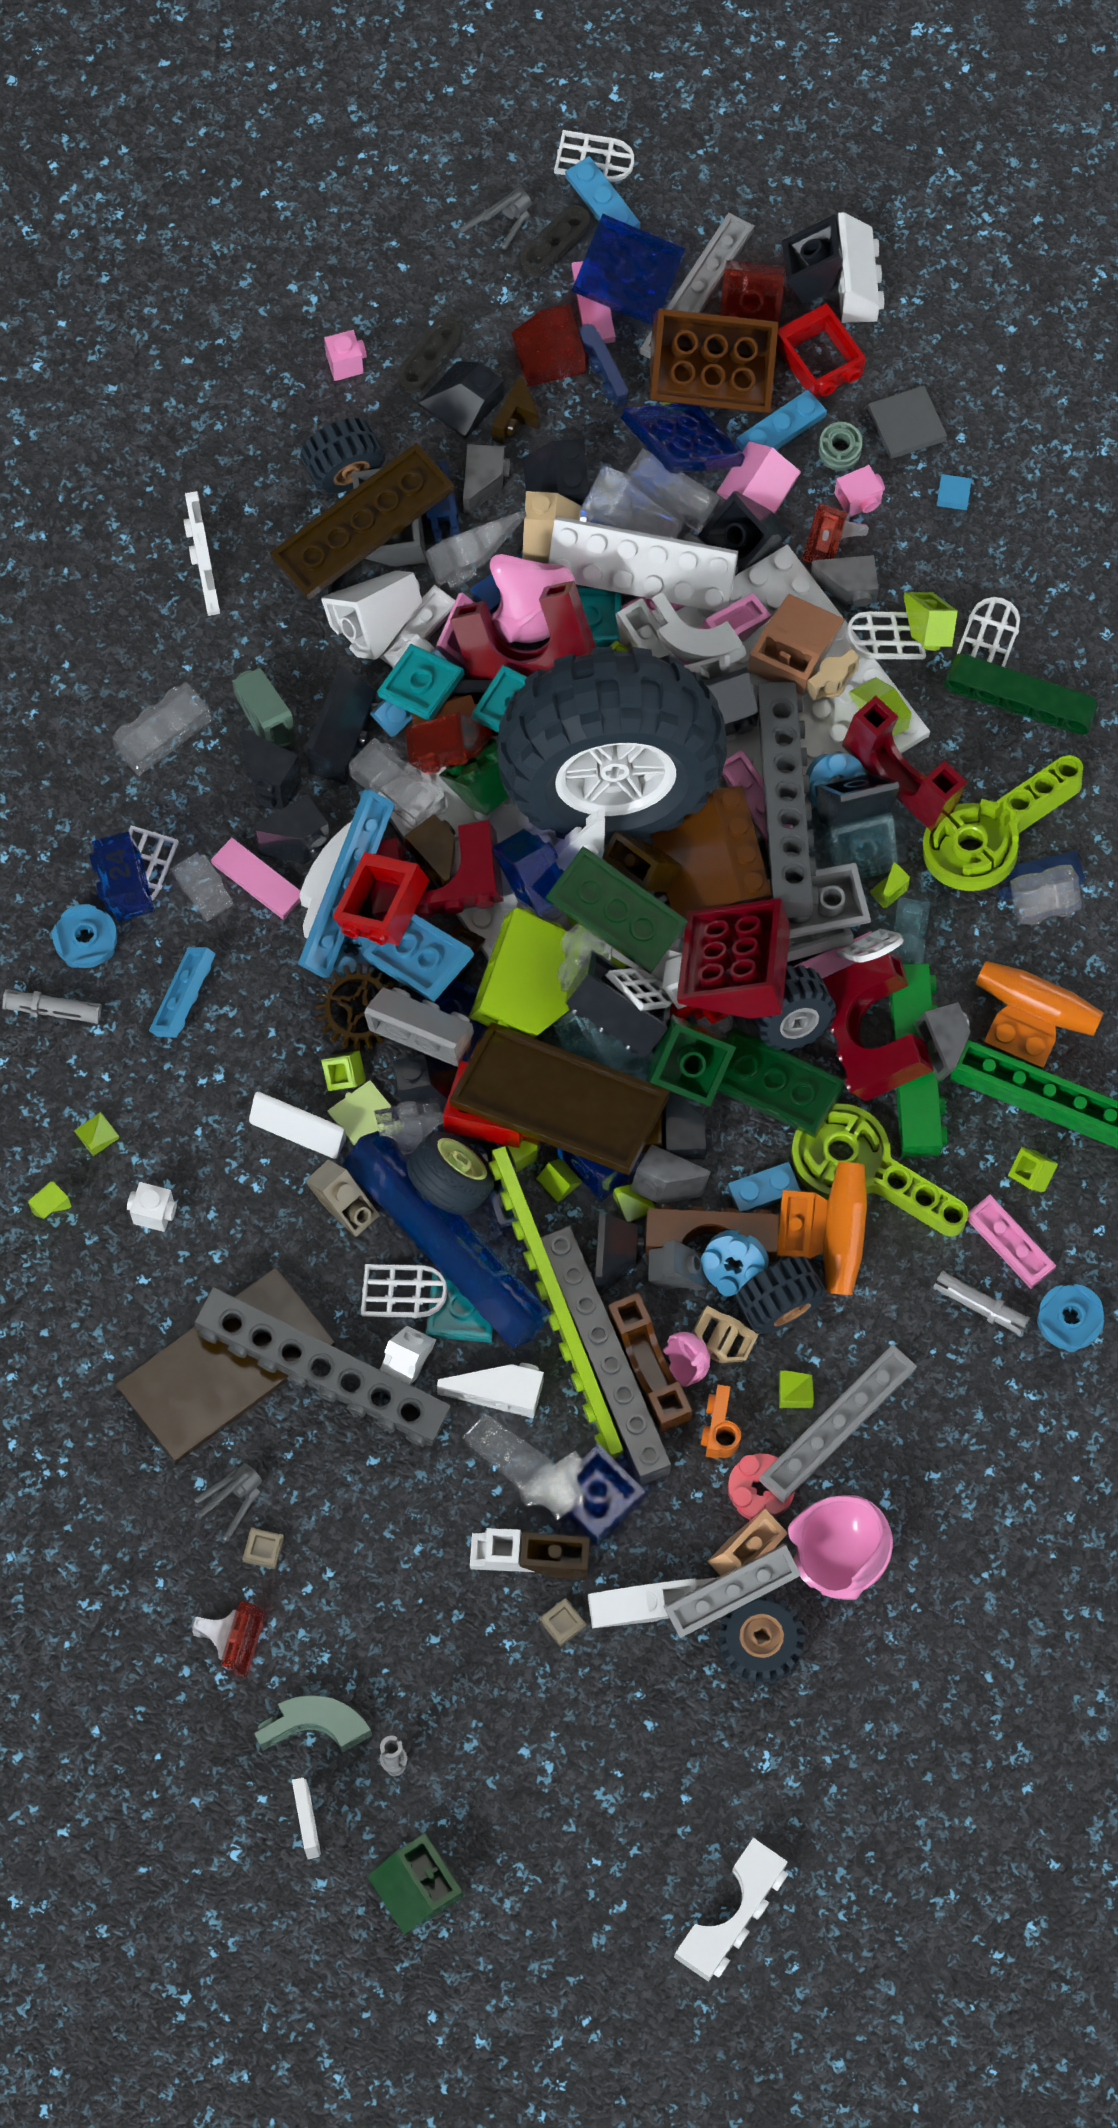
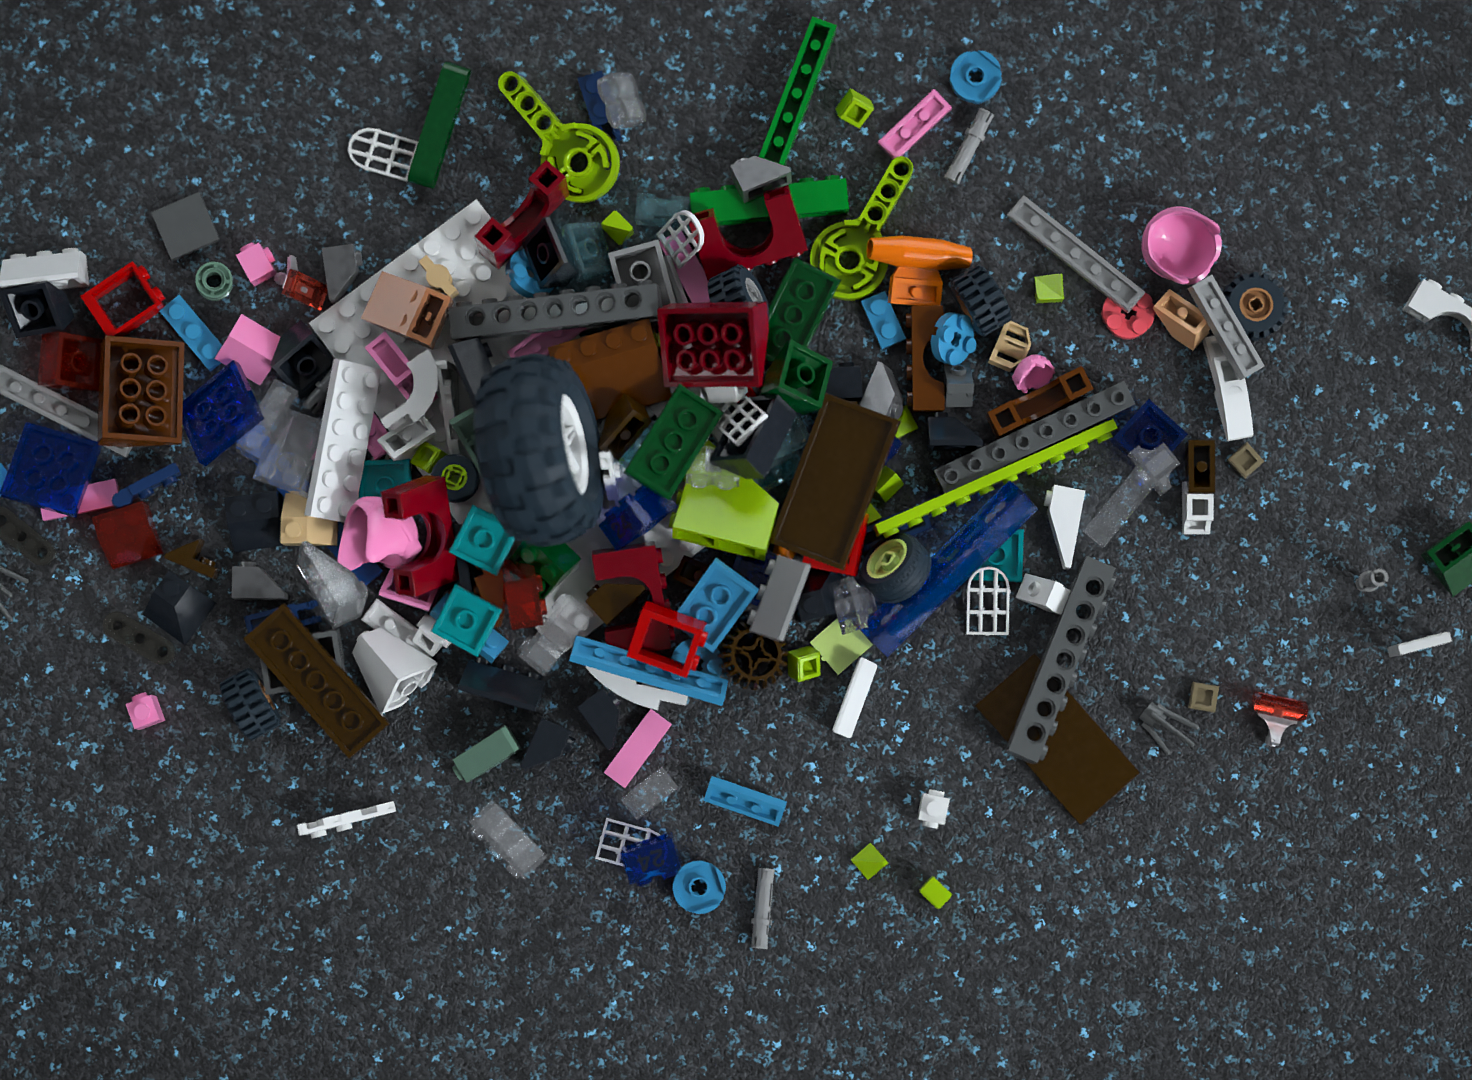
camera: 90 degrees left, 15 degrees up
(317, 1714) = (1333, 645): sand green arch -> none
(342, 1197) = (914, 656): dark tan slope -> none
(717, 1407) = (1069, 347): orange plate -> none
(876, 643) = (395, 228): white window -> none
(888, 695) = (459, 238): lime slope -> none
(930, 619) = (375, 200): lime slope -> none
(954, 492) = (251, 185): dark azure tile -> none
(1032, 1013) = (722, 110): orange plate -> none

